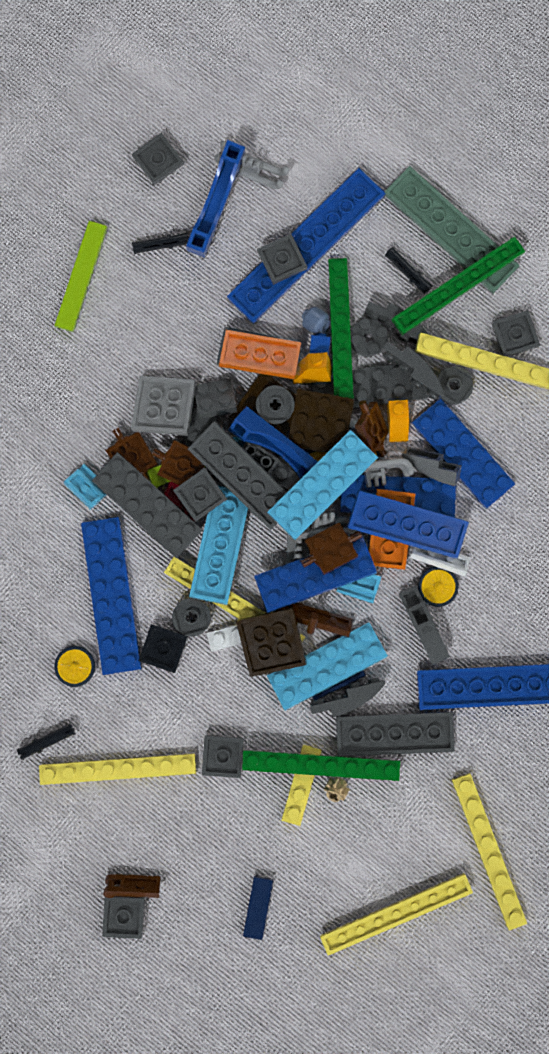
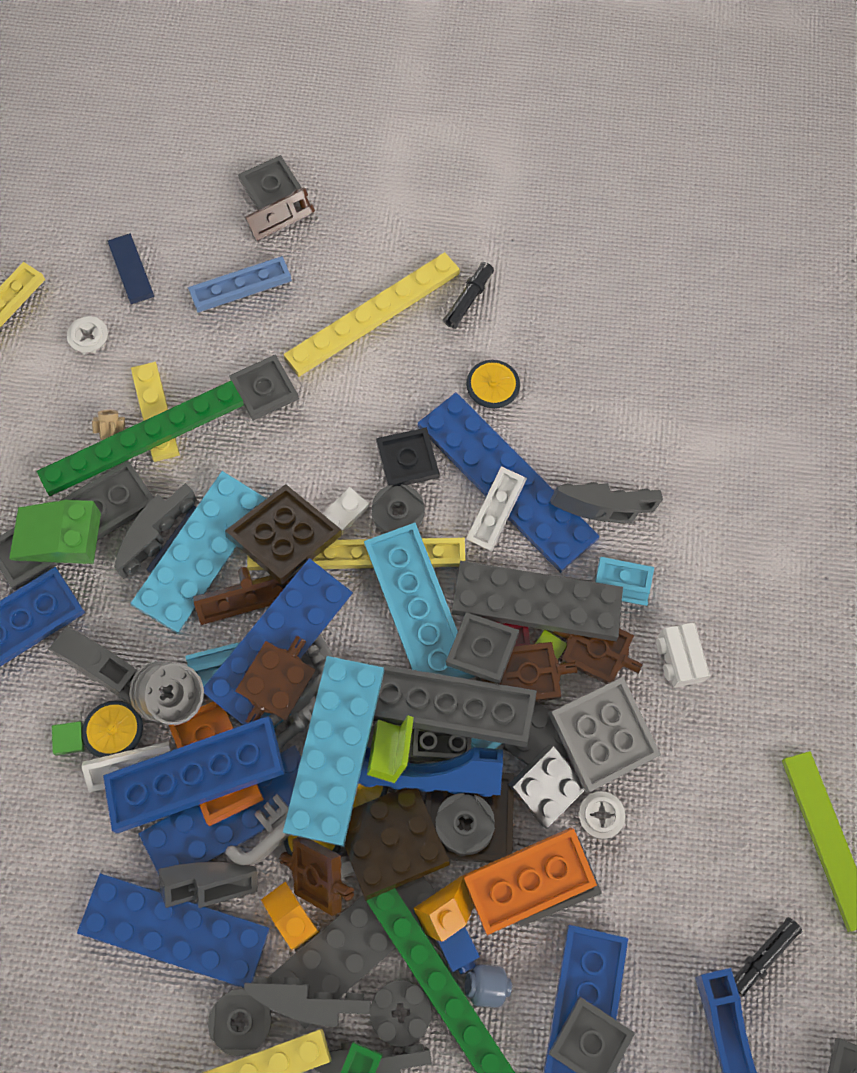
camera: 145 degrees right, 15 degrees down
(65, 539) = (600, 504): none -> dark grey slope
(85, 421) = (682, 655): none -> white brick
(132, 577) = (496, 508): none -> white plate
(192, 846) = (240, 284): none -> medium blue plate
(194, 357) = (610, 805): none -> white gear
(291, 467) = (390, 749): none -> lime panel
(309, 878) = (87, 325): none -> white gear
(396, 582) = (181, 688): none -> light grey wheel
(409, 730) = (56, 532): none -> bright green slope
(466, 597) = (67, 738): none -> bright green tile

